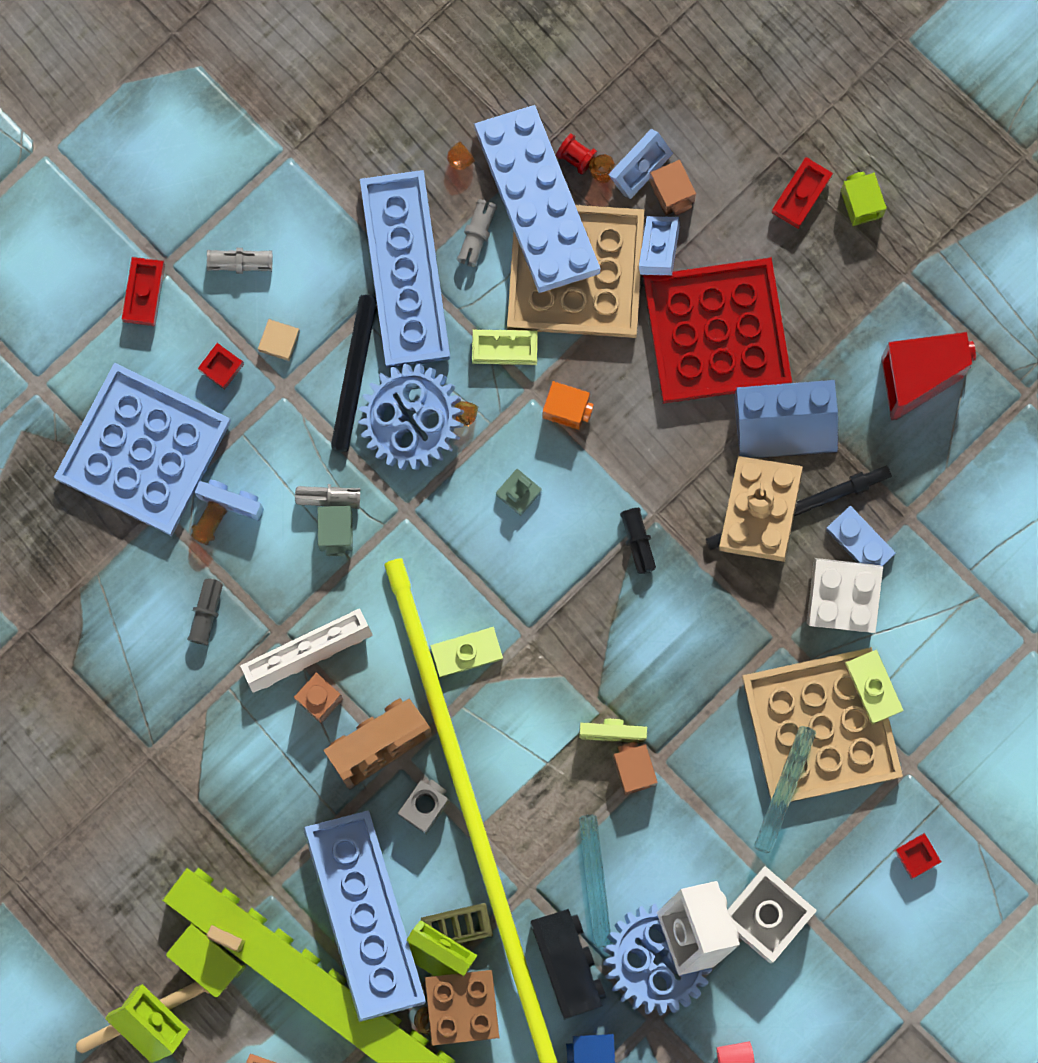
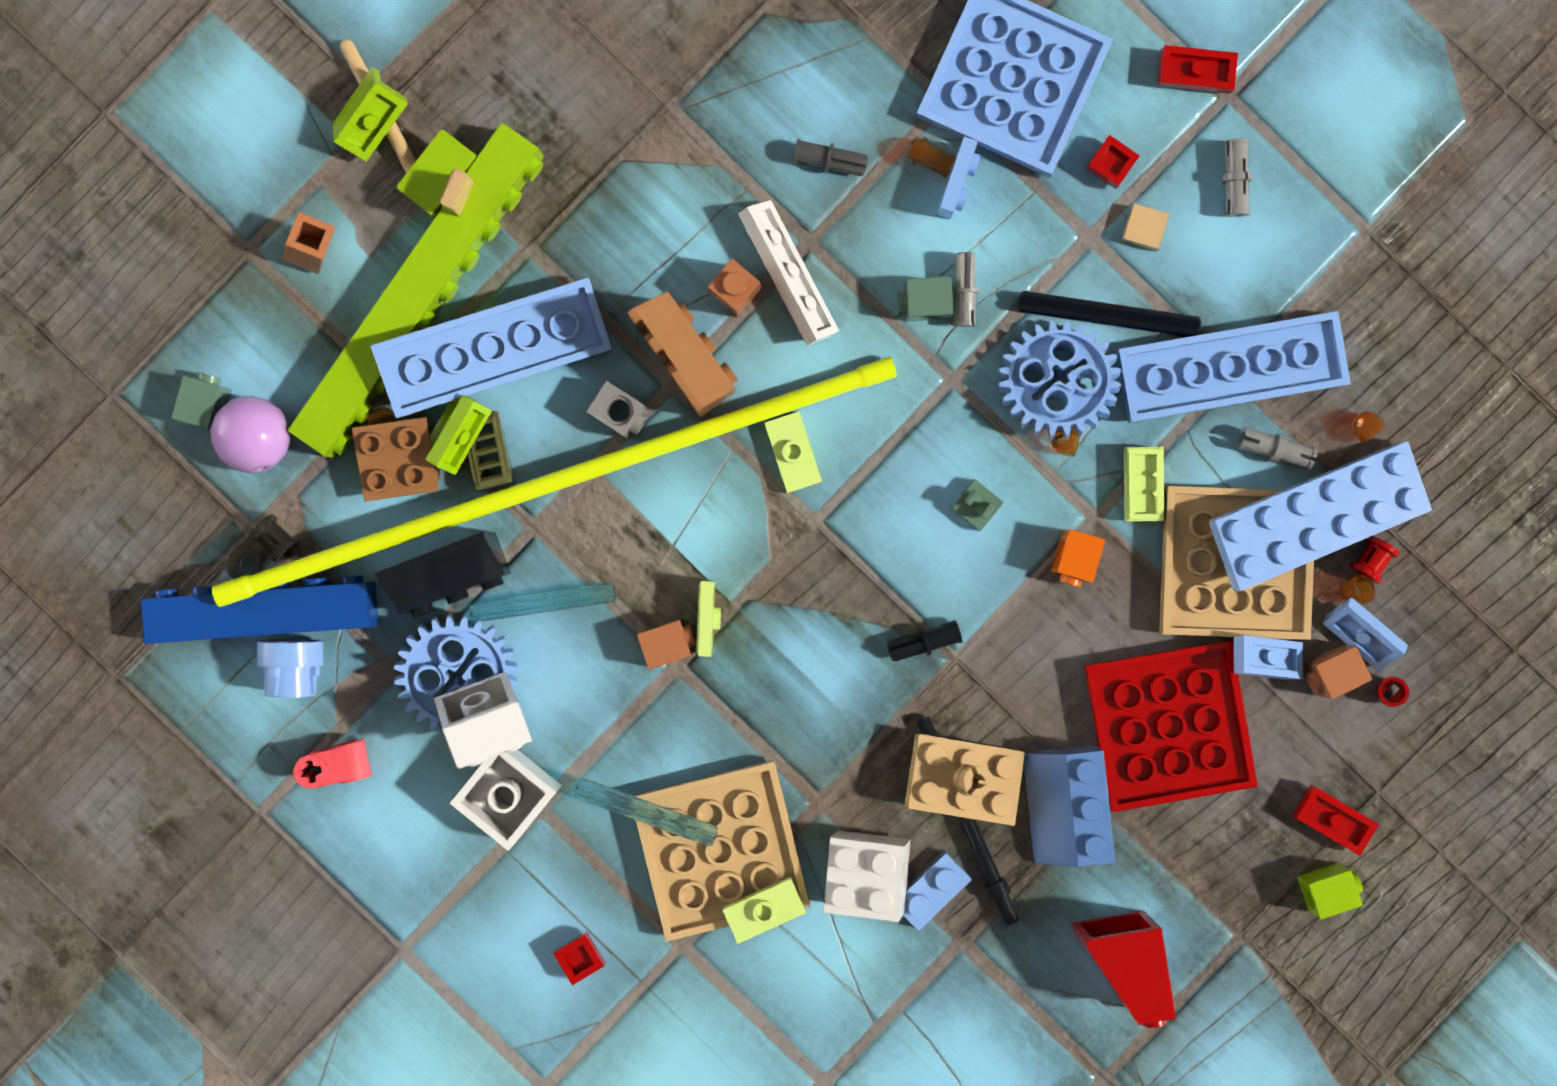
camera: 80 degrees right, 10 degrees up
(686, 147) = (1398, 697): none -> red hinge

